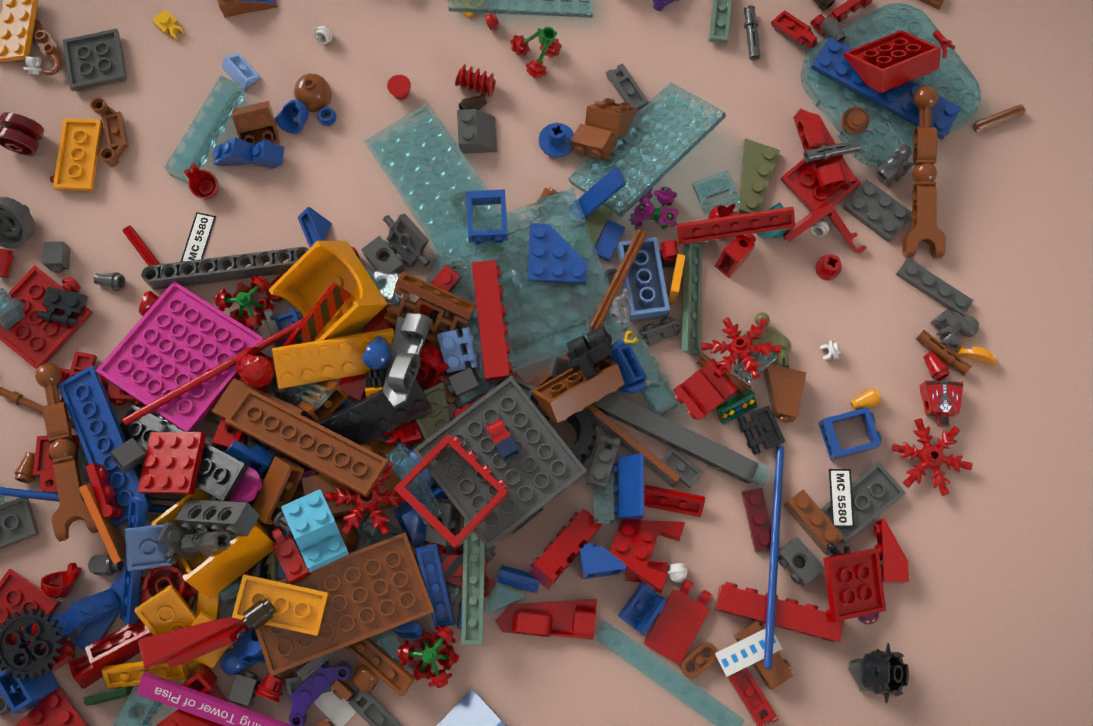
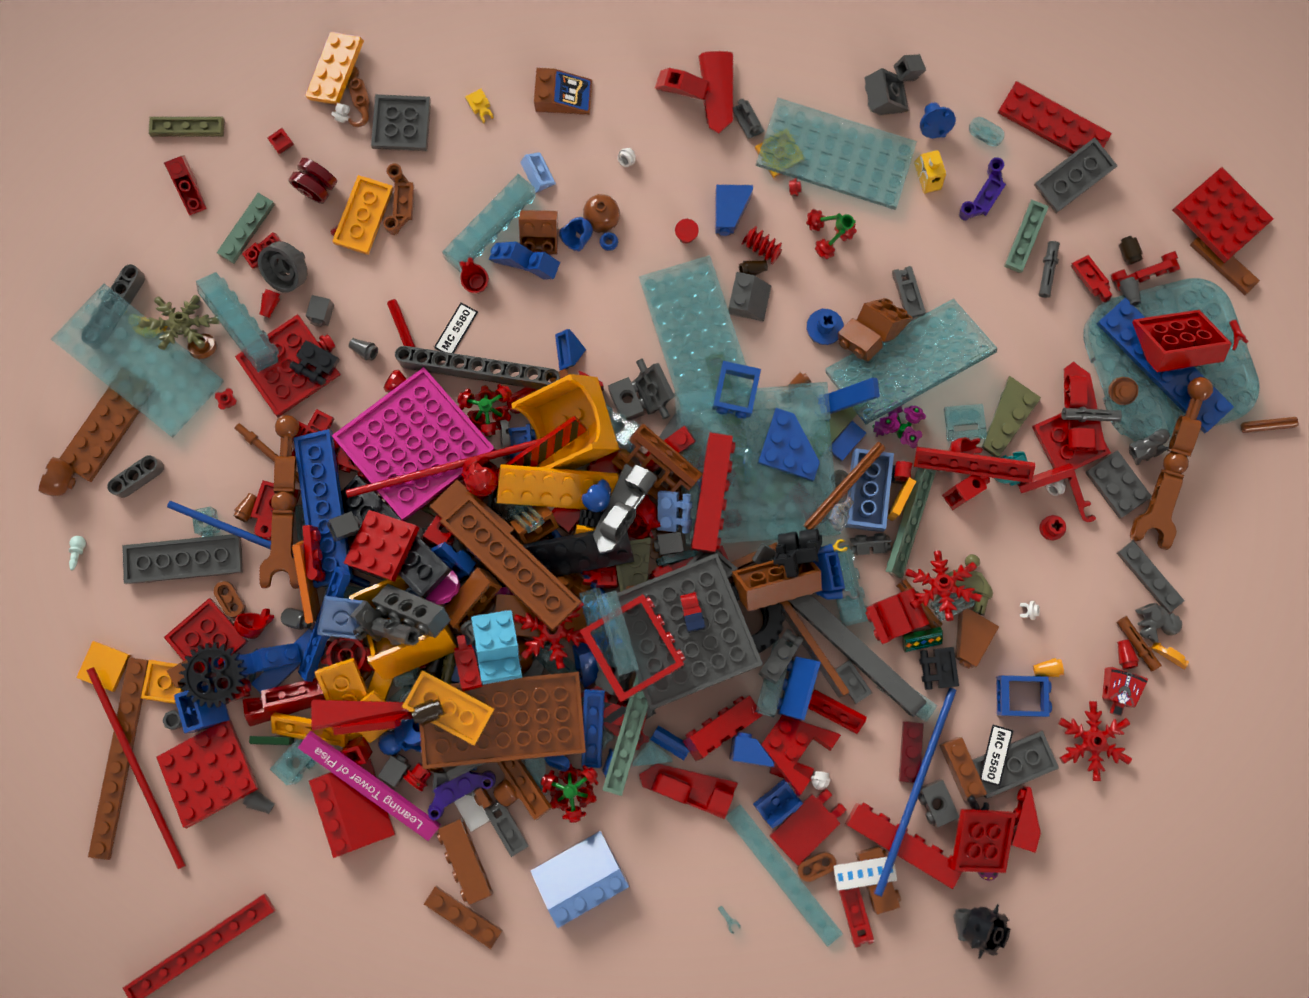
camera: 15 degrees right, 5 degrees up
(31, 566) = (229, 600): none -> dark orange plate
(432, 479) = (617, 633): none -> clear light blue plate
(435, 53) = (730, 206): none -> blue slope

